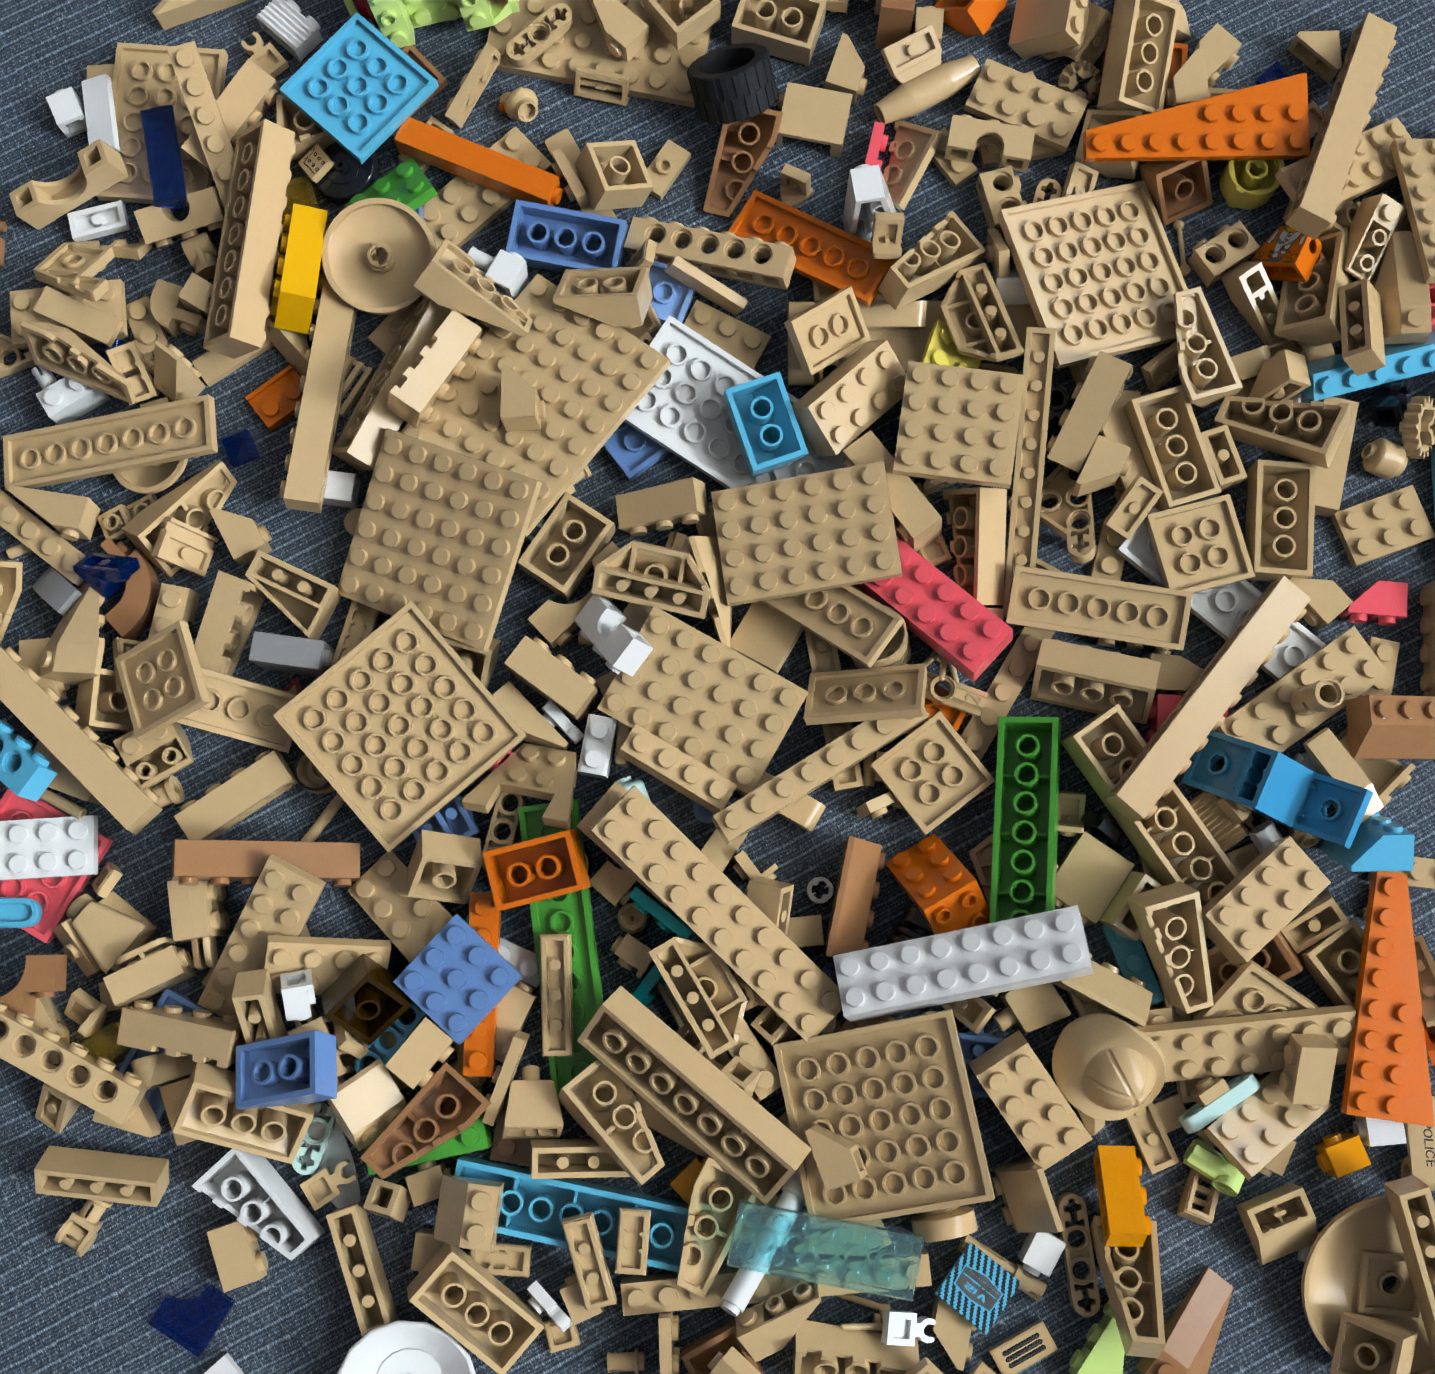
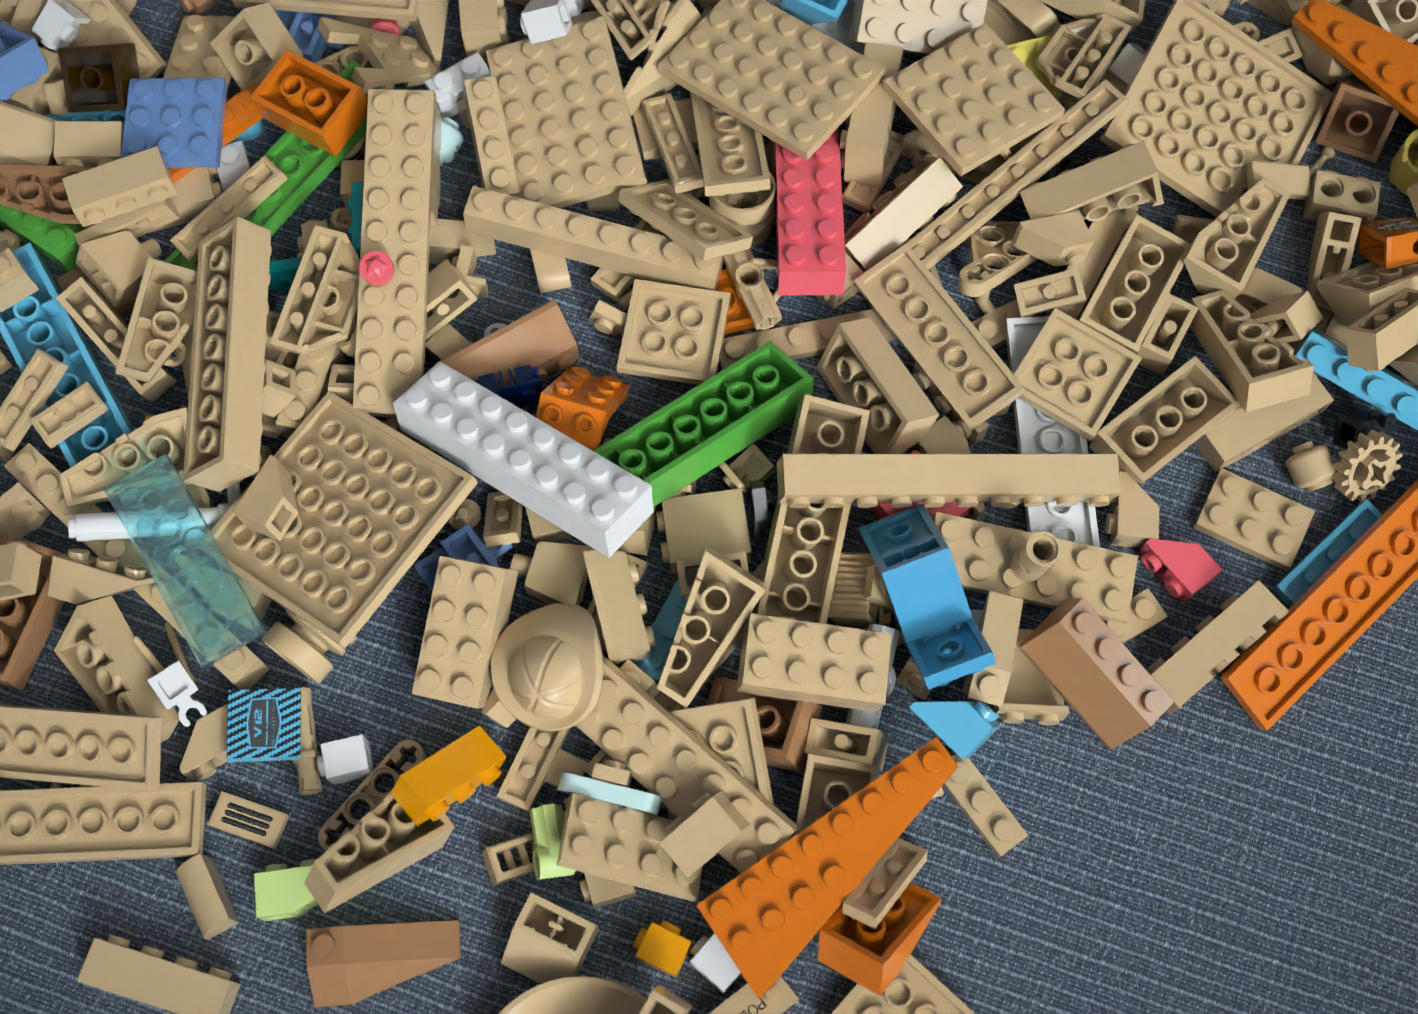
camera: 45 degrees right, 10 degrees down
(489, 1064) = (119, 186): none -> tan brick
(559, 719) = (454, 40): white plate -> none
(731, 941) = (376, 268): none -> coral tile
(789, 645) = (673, 143): none -> tan tile
(891, 910) = (524, 393): none -> clear blue hinge
(998, 253) = (1147, 31): tan plate -> none
(1026, 1197) = (381, 701): tan slope -> none
(1178, 278) = (1291, 178): none -> tan tile

